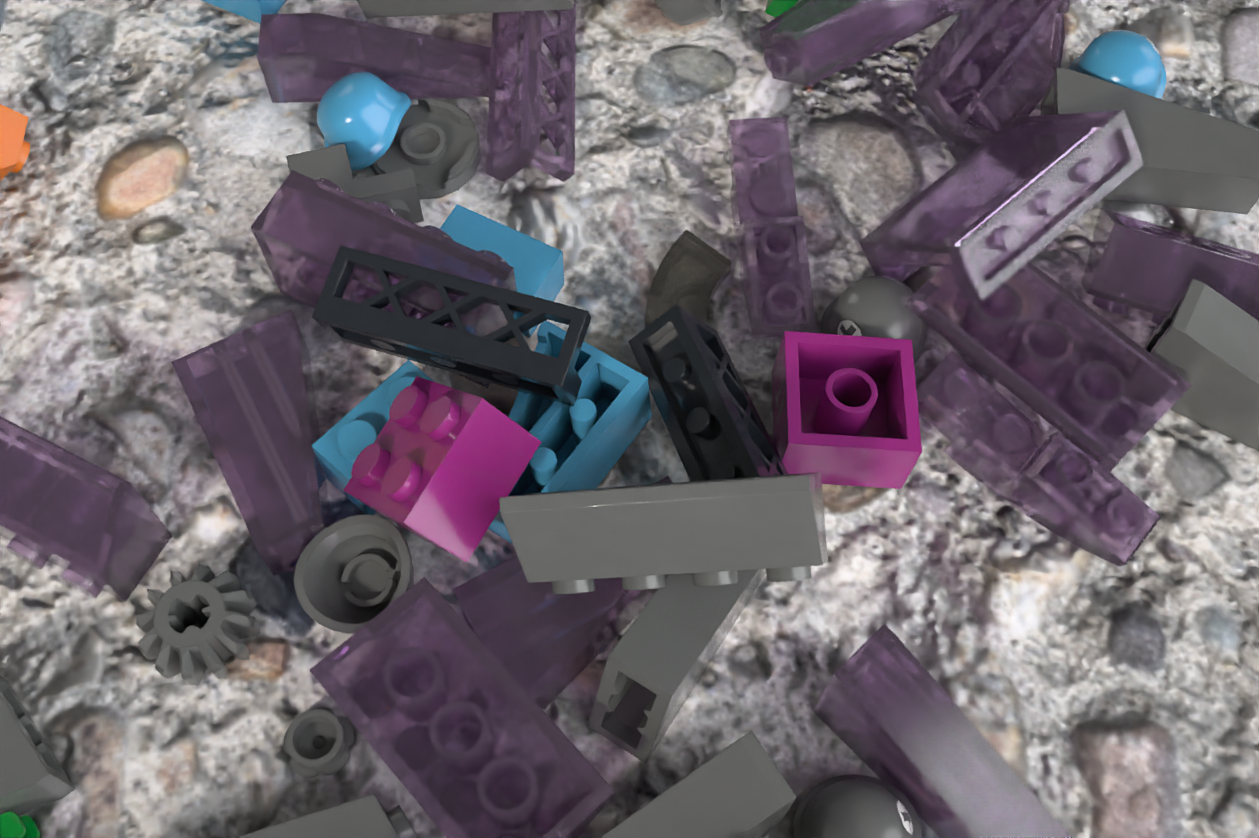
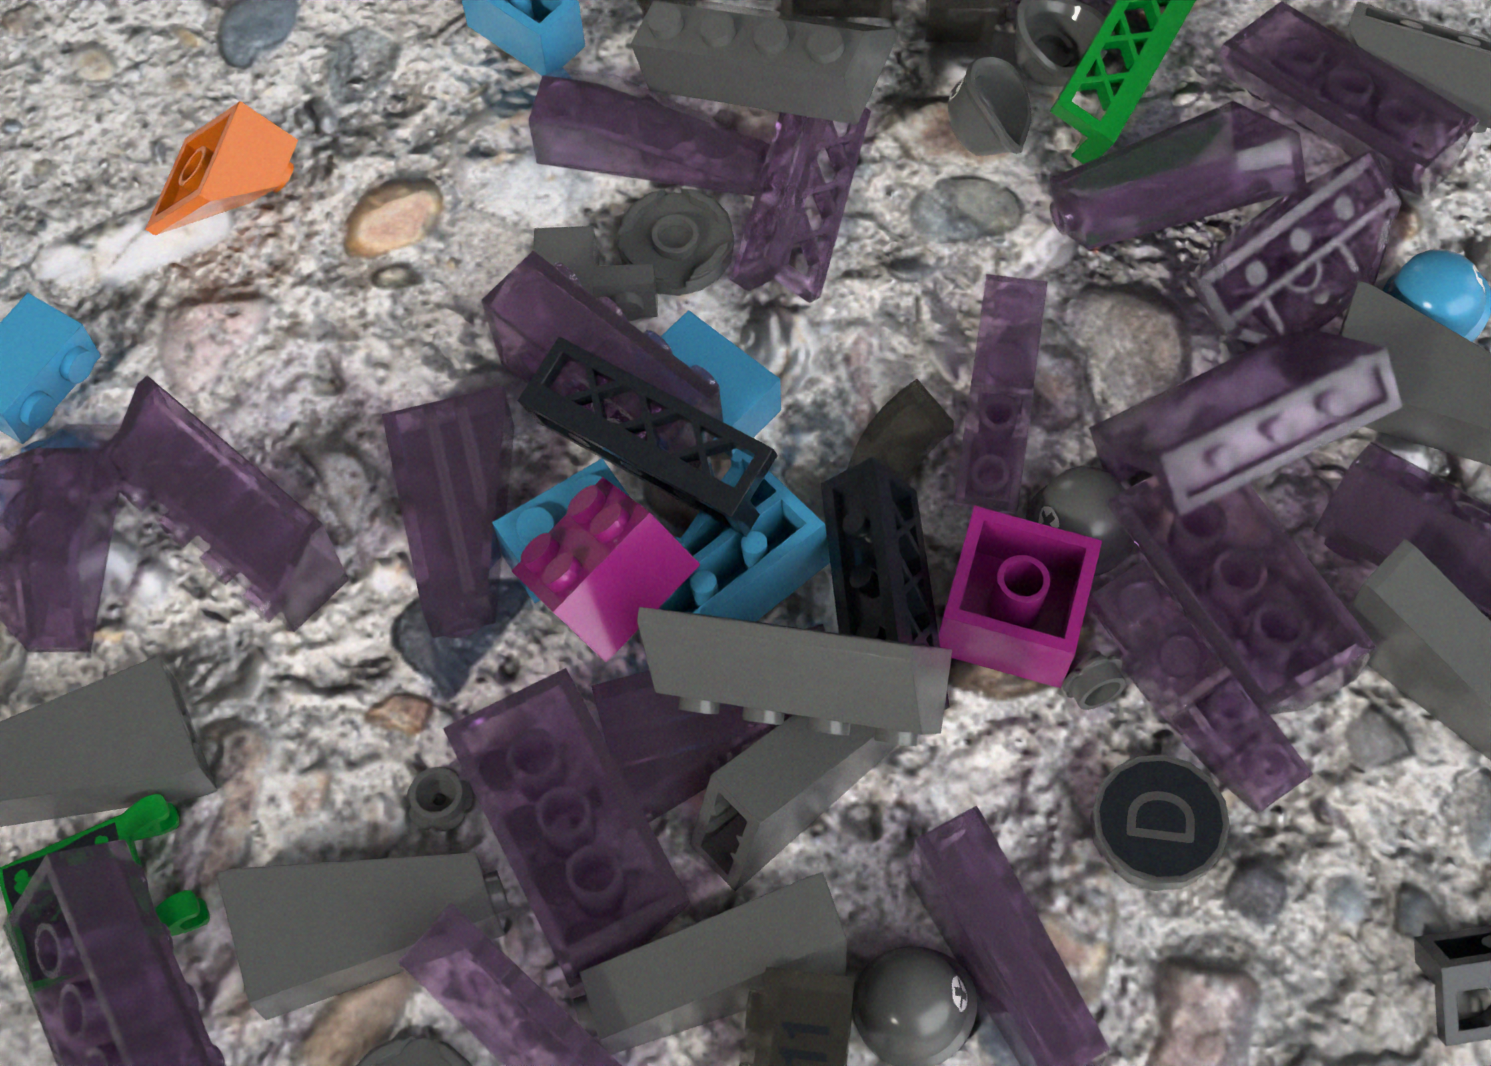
camera: 20 degrees right, 0 degrees up
(186, 647) = (369, 647): dark grey gear -> none
(353, 572) = (504, 649): dark grey helmet -> none
(362, 115) = (619, 198): dark azure helmet -> none
(933, 474) = (1094, 679): none -> dark grey plate
(1032, 596) = (1159, 822): none -> black tile

